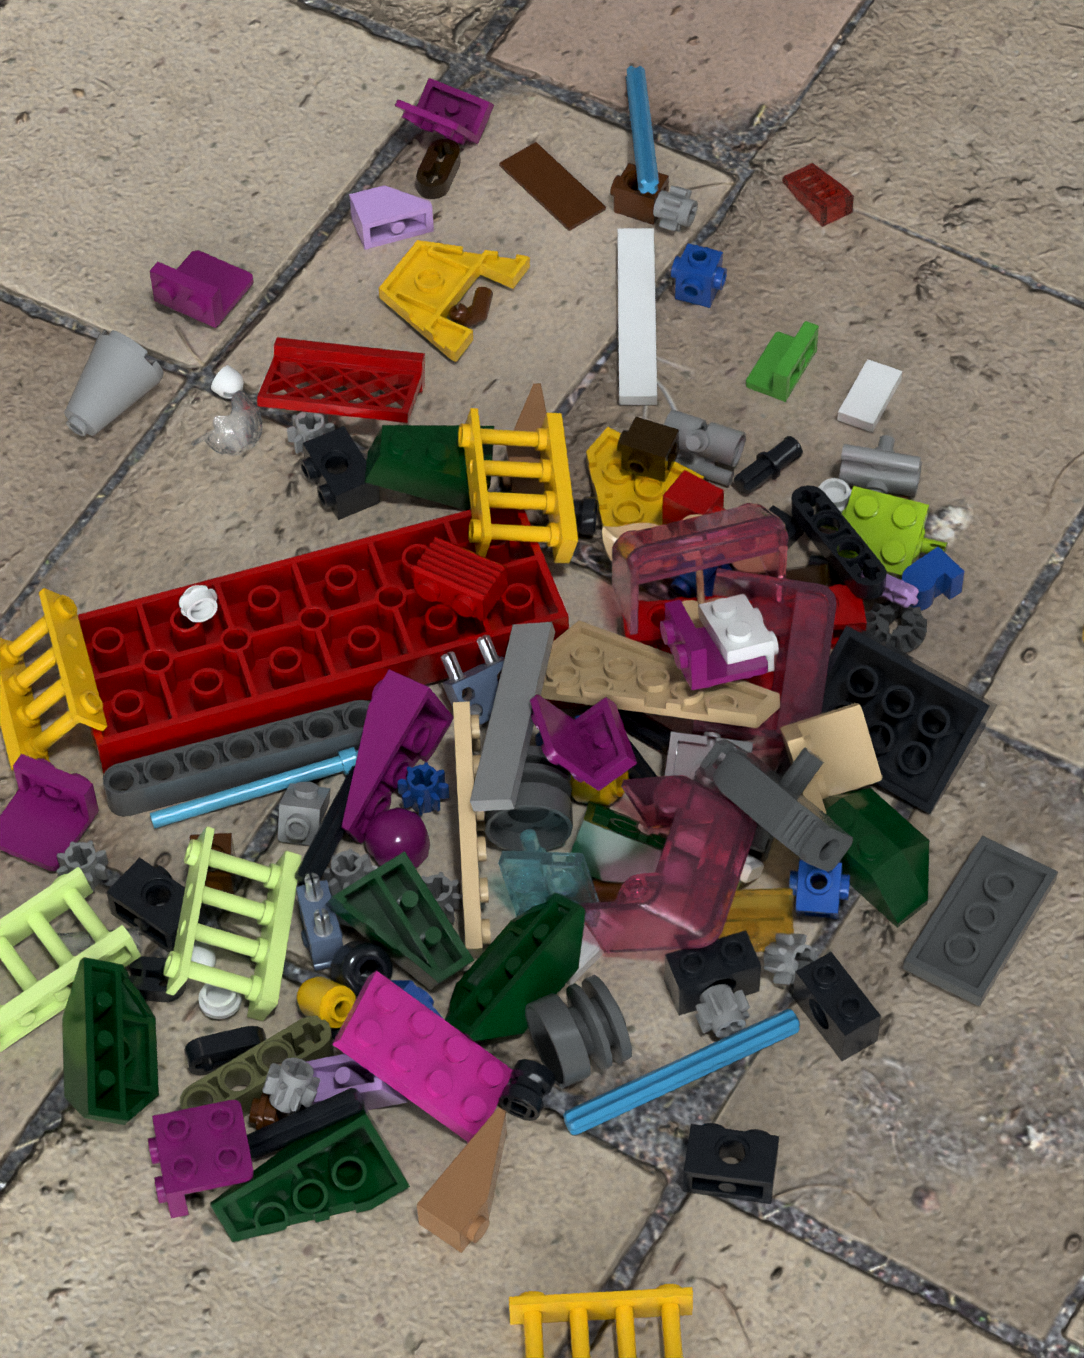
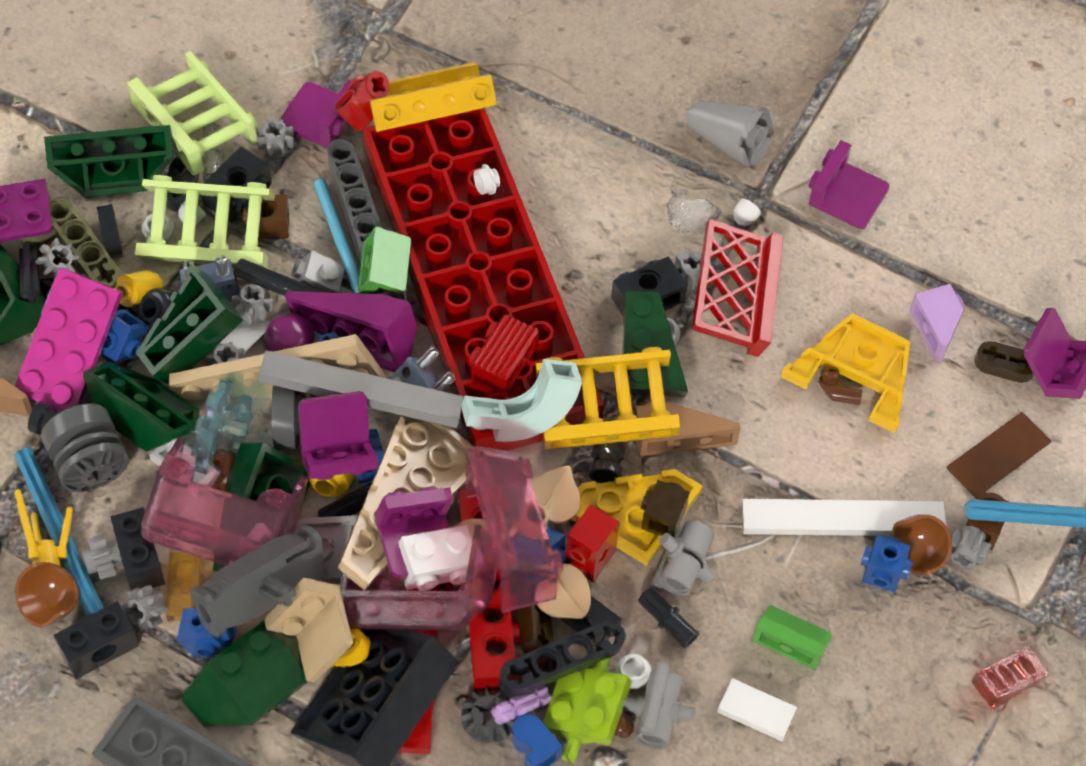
camera: 85 degrees right, 5 degrees up
(46, 741) = (355, 103): none -> red piece
(316, 715) = (384, 262): none -> panel
(542, 539) = (531, 412): none -> light aqua arch
(670, 236) = (928, 541): none -> dark orange helmet
(720, 1074) = (39, 549): none -> yellow plant
(783, 1064) = (45, 593): none -> dark orange helmet

